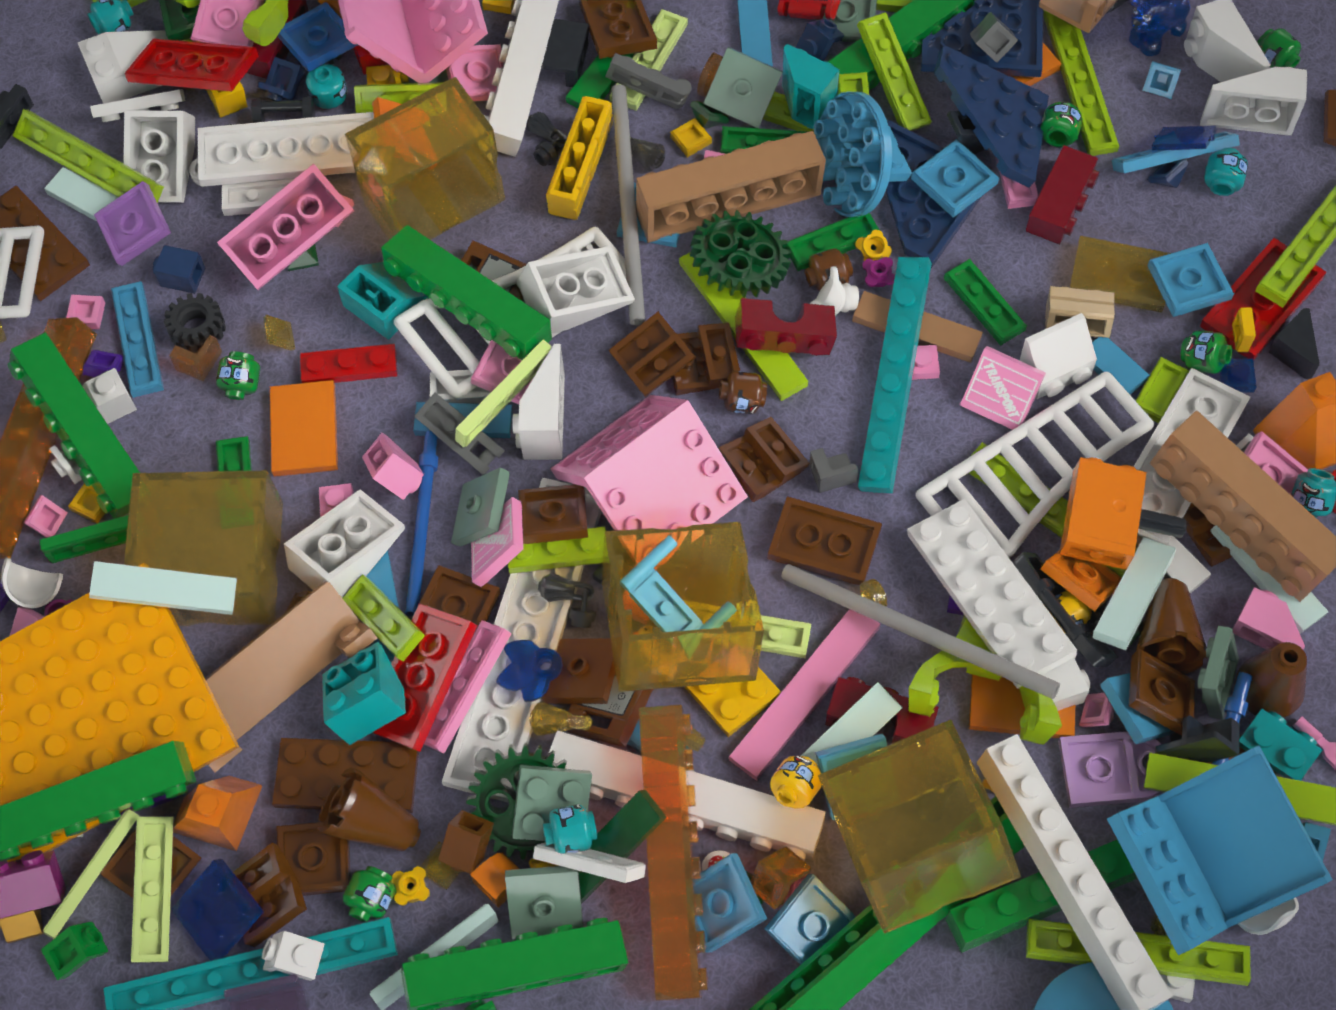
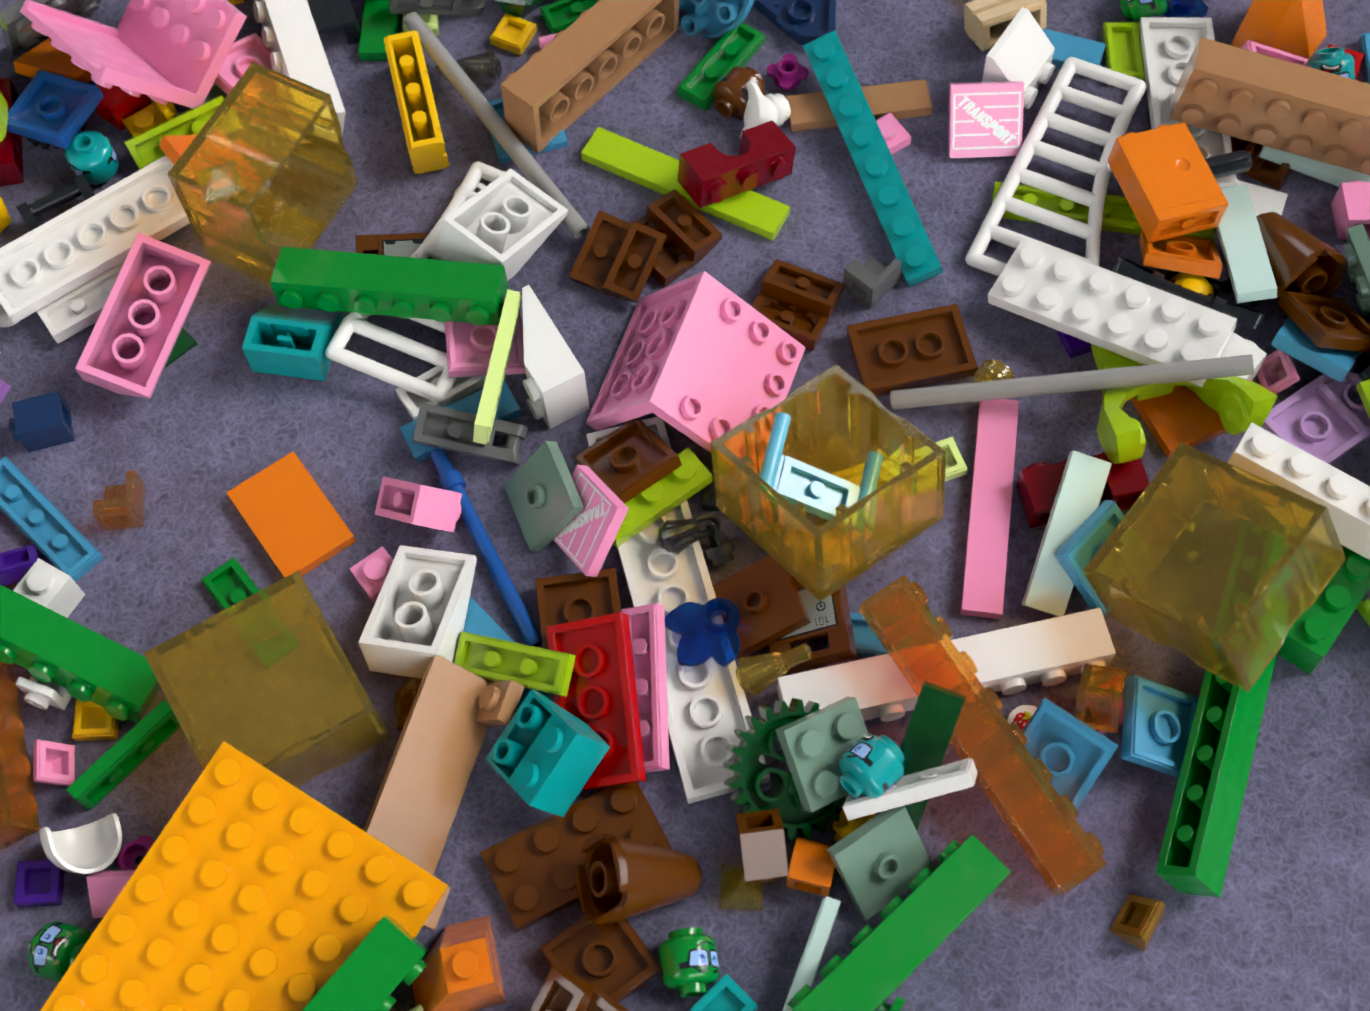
camera: 30 degrees left, 0 degrees up
(162, 588) = (264, 756): light aqua tile -> none
(191, 309) = (87, 454): black tyre -> none
(238, 375) = (183, 498): green head -> none
(278, 333) = (199, 433): clear yellow slope -> none
(282, 80) = (35, 174): dark blue bracket -> none
(349, 364) = (298, 426): red plate -> none
(417, 893) = (737, 929): yellow plate -> none
(544, 152) = (373, 113): black piece -> none
(735, 702) = (928, 555): yellow plate -> none
(740, 253) = (660, 130): dark green gear -> none
(743, 392) = (734, 248): reddish brown head -> none
(796, 782) = (1055, 593): yellow head -> none
(875, 238) = (770, 43): yellow plate -> none
(985, 302) = (906, 52): green tile -> none

